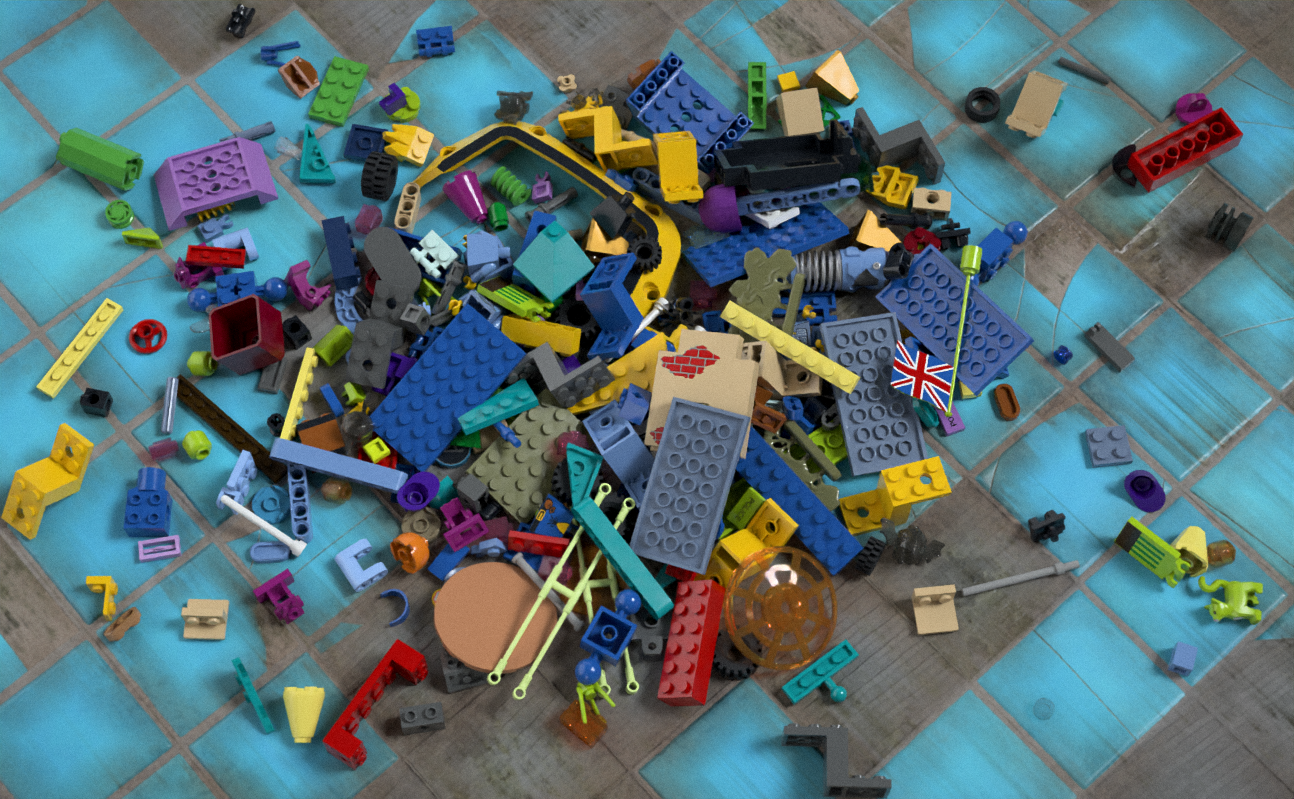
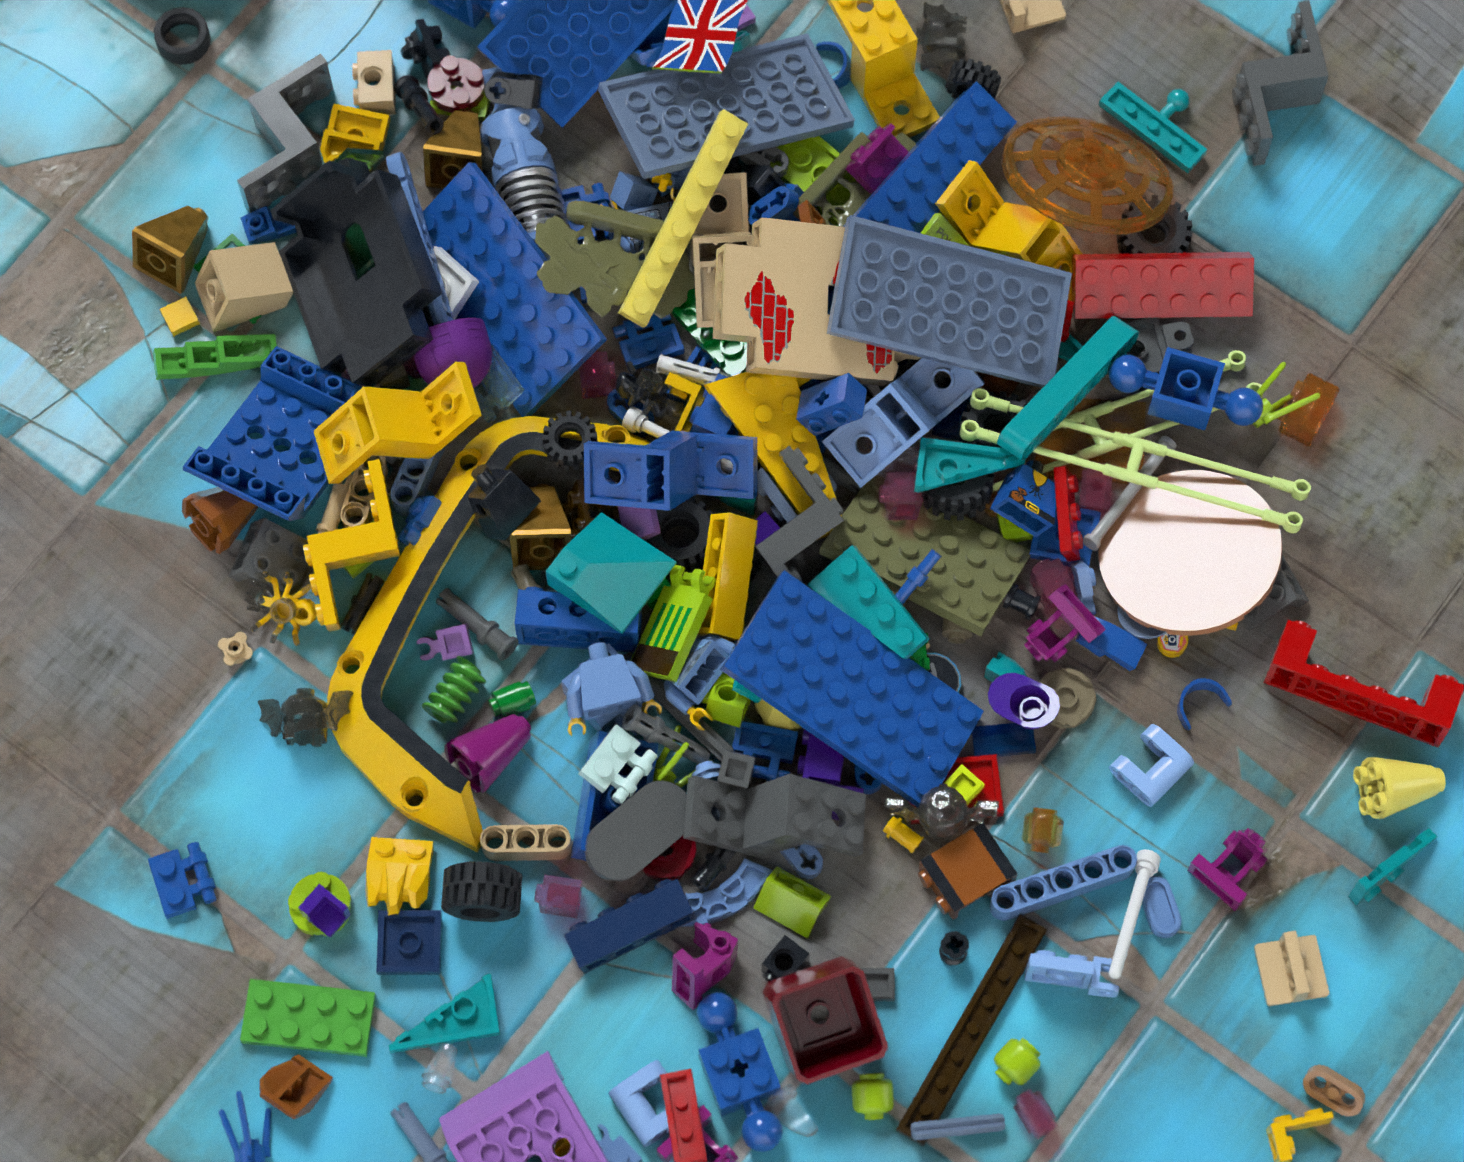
camera: 100 degrees left, 5 degrees up
(148, 505) = (1136, 1106): blue brick -> none
(158, 541) = (1184, 1050): lavender tile -> none
(272, 504) = (1083, 925): dark azure tile -> none
(300, 394) = (897, 927): light yellow plate -> none
(331, 400) = (892, 876): blue beam -> none
(337, 465) = (1012, 826): medium blue beam -> none
(354, 392) = (874, 841): lime tile -> none
(411, 551) = (1118, 692): orange cylinder -> none
(422, 718) = (1361, 621): dark grey brick -> none
(473, 493) = (1008, 623): dark grey brick -> none
(817, 477) = (877, 158): none -> magenta bracket

